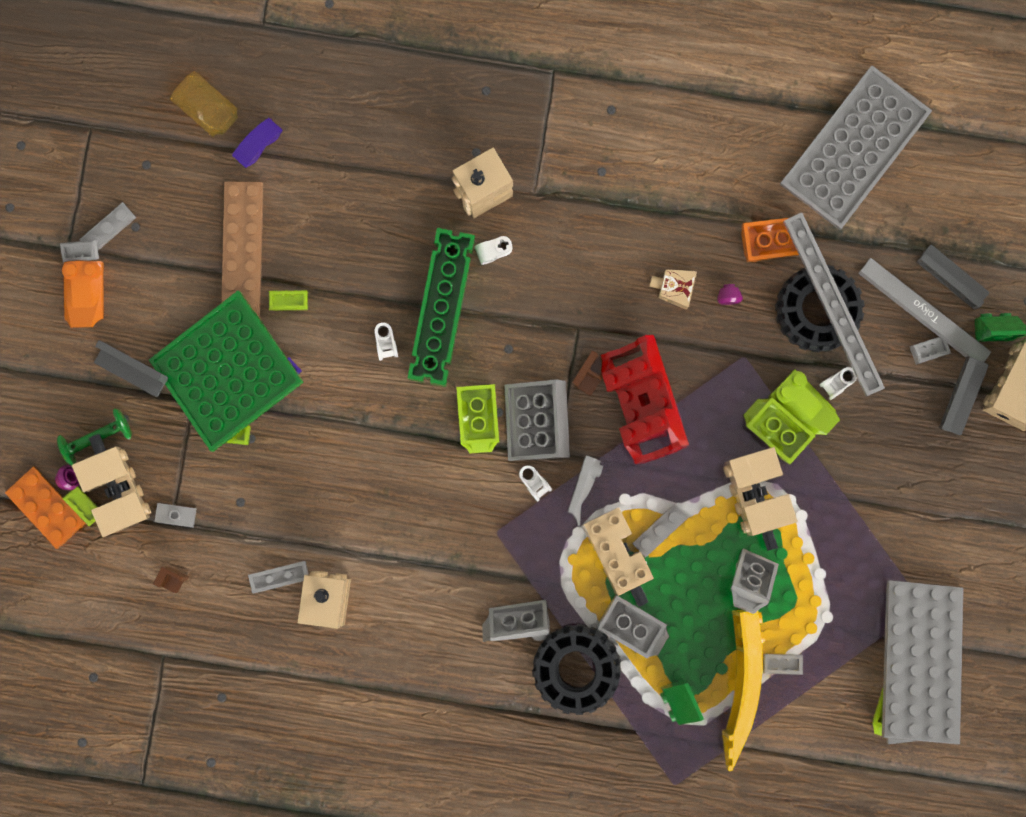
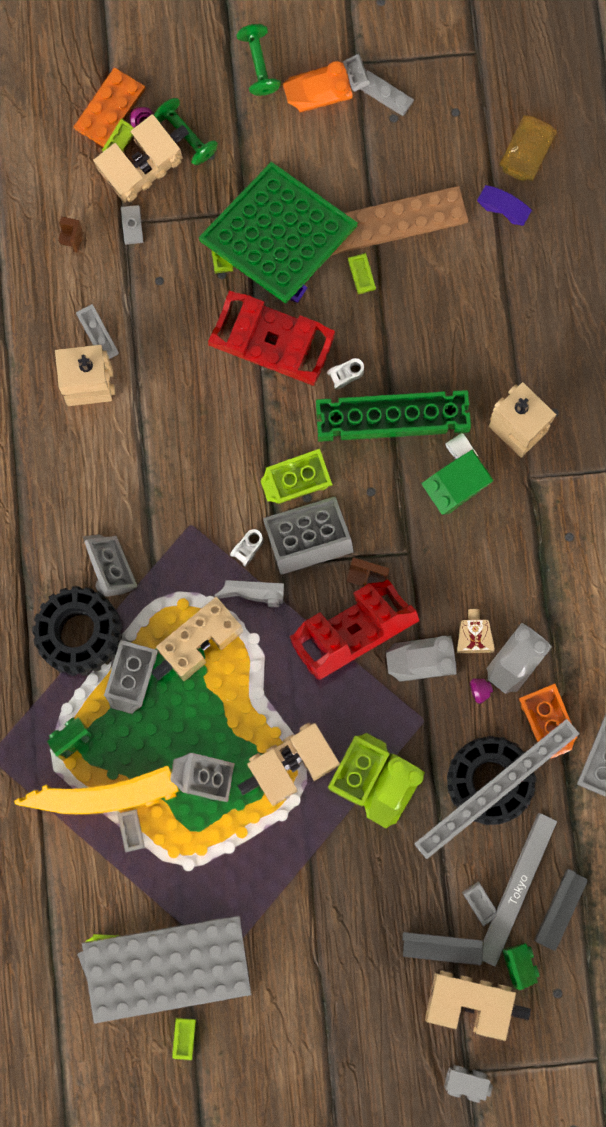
camera: 80 degrees right, 5 degrees down
(8, 345) = (252, 34): none -> green hose
(130, 369) = (257, 147): dark grey panel -> none
(345, 387) = (289, 333): none -> red piece
(525, 262) = (457, 482): none -> green slope
(659, 530) = (231, 679): light grey plate -> none
(684, 343) = (421, 659): none -> light grey slope
(708, 253) = (517, 659): none -> light grey slope
(836, 384) = (421, 818): white piece -> none
(989, 661) = (184, 1038): none -> lime plate

